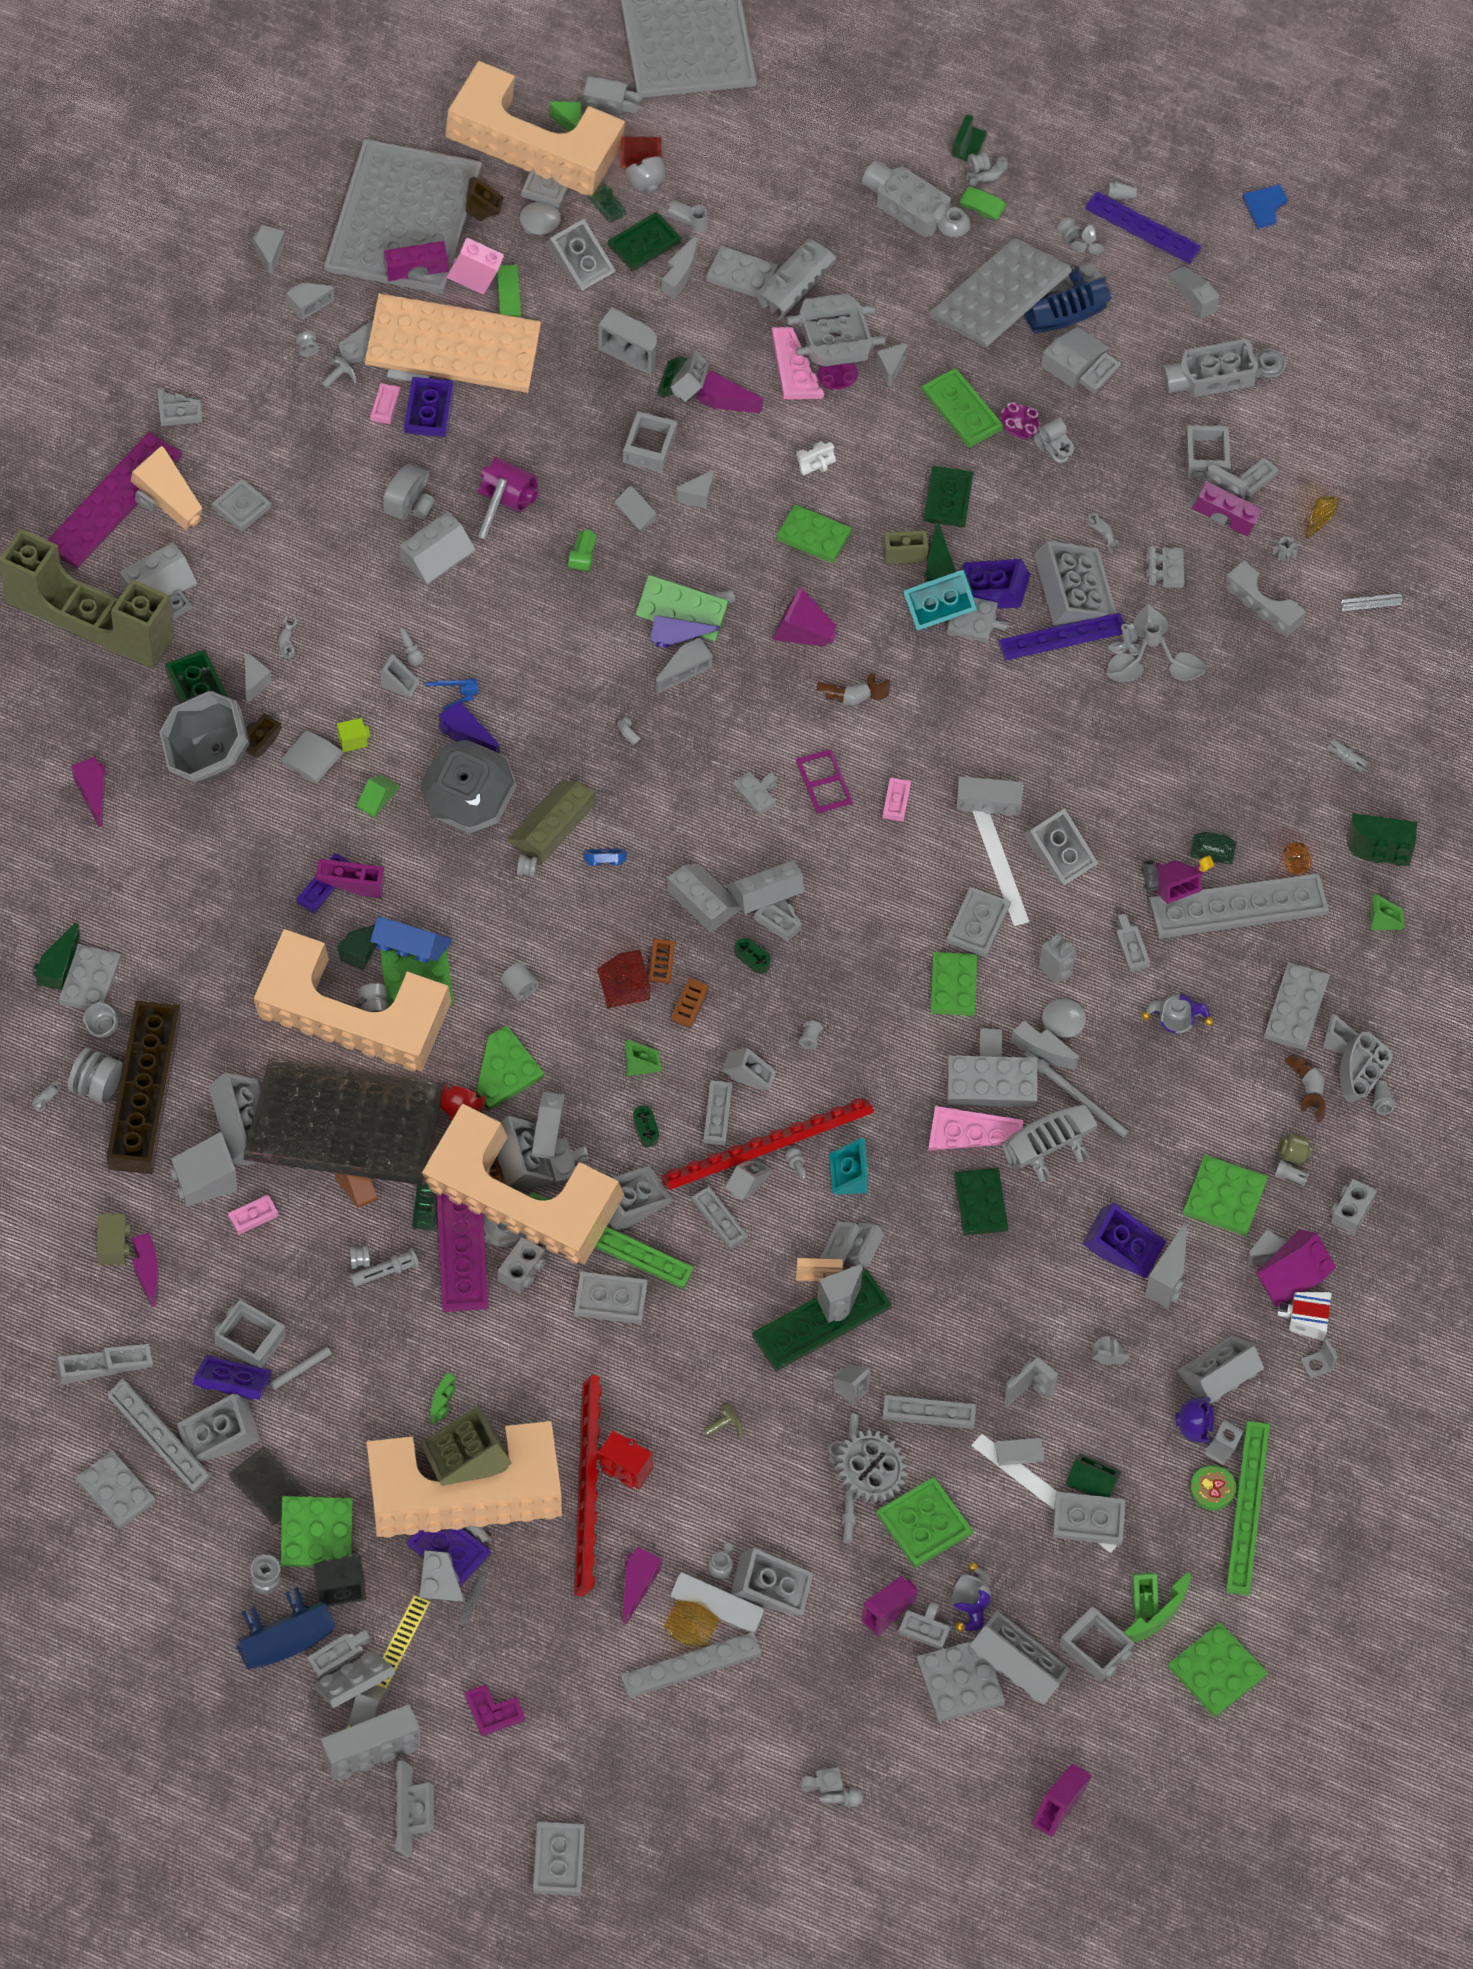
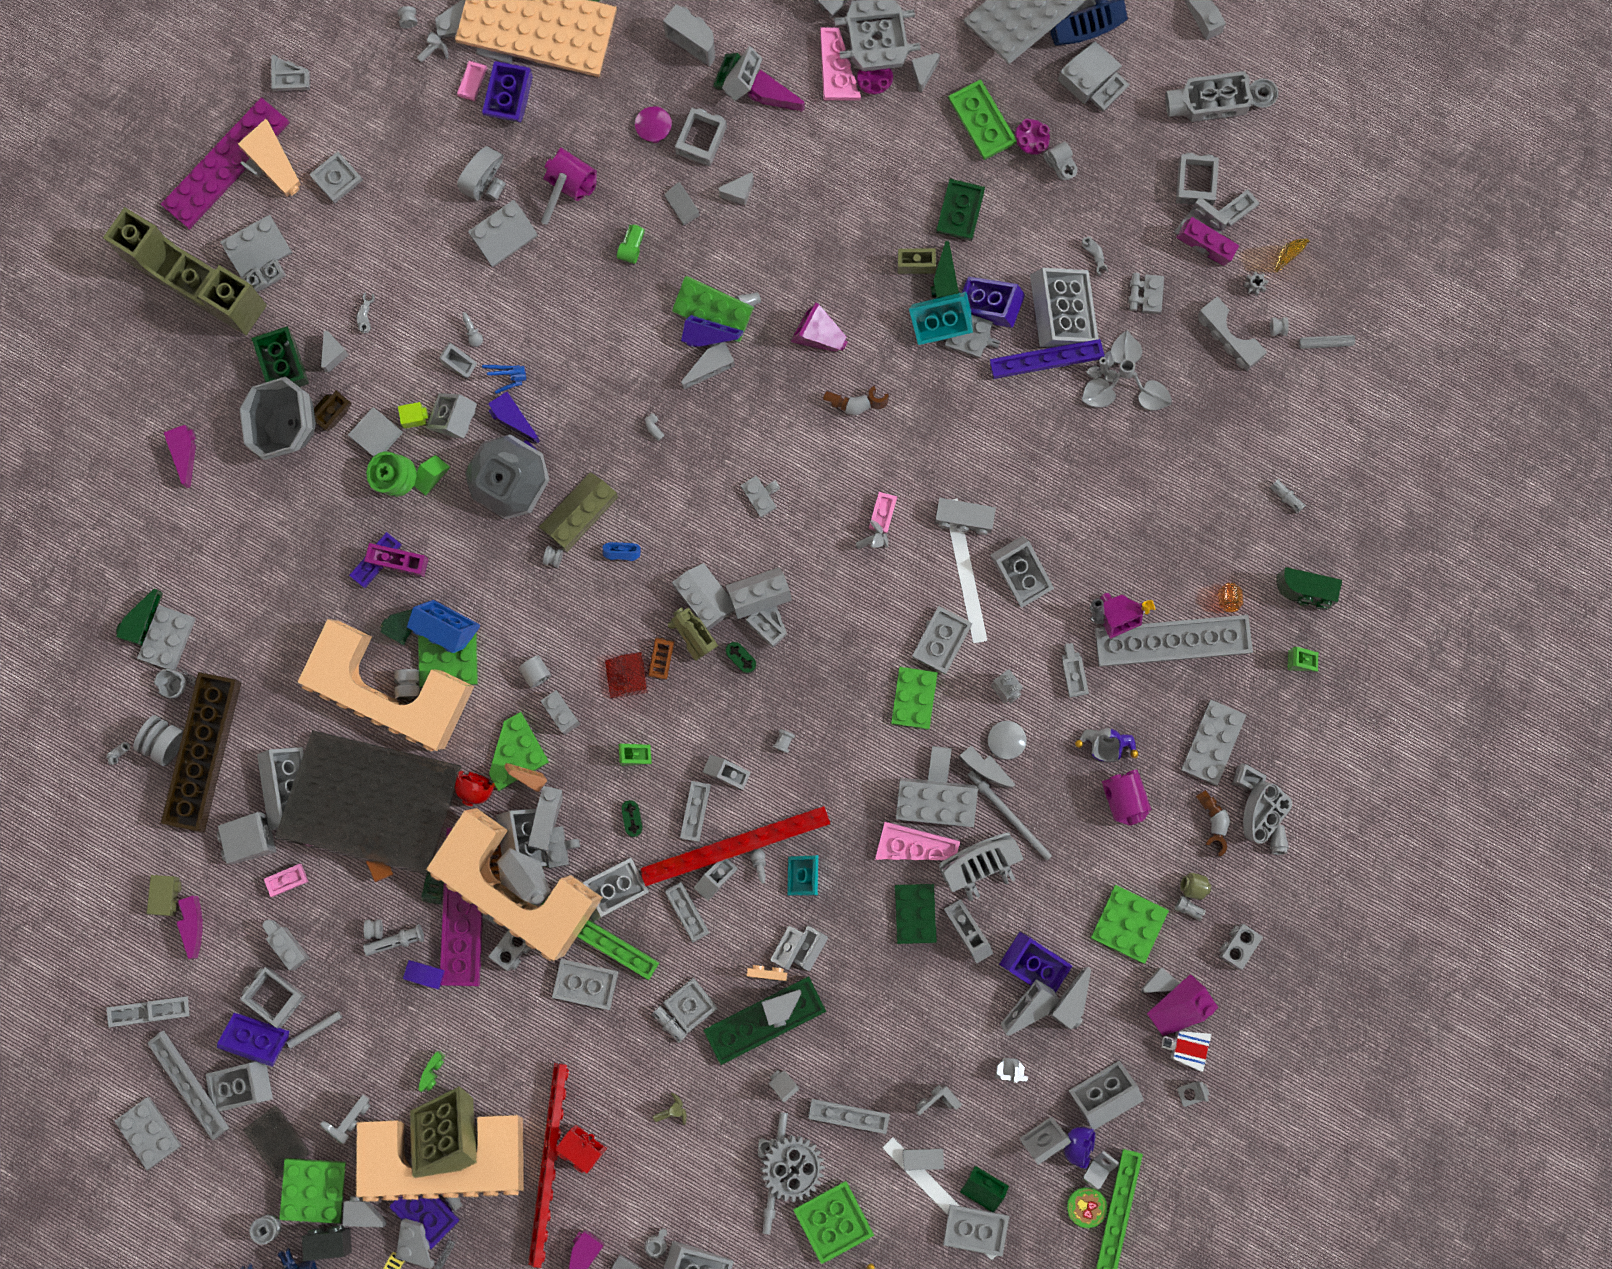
camera: 10 degrees right, 20 degrees up
(260, 1279) = (285, 945): none -> light grey hinge
(336, 791) = (391, 474): none -> bright green wheel
(352, 1450) = (349, 1122): none -> light grey piece
(377, 1553) = (361, 1214): none -> light grey slope
(397, 731) = (451, 415): none -> light grey slope
(423, 1297) = (423, 974): none -> dark purple slope
(525, 1088) = (531, 778): none -> nougat slope
(531, 1175) = (523, 877): none -> light grey slope
(553, 1021) = (560, 712): none -> light grey piece
(594, 433) = (653, 124): none -> magenta dish
(695, 990) = (686, 685): dark orange slope -> none
(697, 928) = (695, 634): none -> olive piece
(711, 1332) = (669, 1024): none -> light grey pin
(733, 1313) = (690, 1005): none -> light grey tile
(809, 785) = (823, 487): magenta window -> none
(814, 534) = (837, 238): bright green plate -> none
(817, 458) = (846, 164): white hips -> none
(893, 822) = (876, 540): none -> light grey plant
(1045, 1213) = (969, 931): none -> light grey slope
(1127, 1278) = (1033, 1006): none -> light grey slope
(1155, 1415) = (1045, 1140): none -> light grey plate
(1206, 1060) = (1127, 798): none -> magenta cylinder
(1218, 846) = (1156, 582): clear green slope -> none
(1316, 589) = (1279, 326): none -> light grey wheel

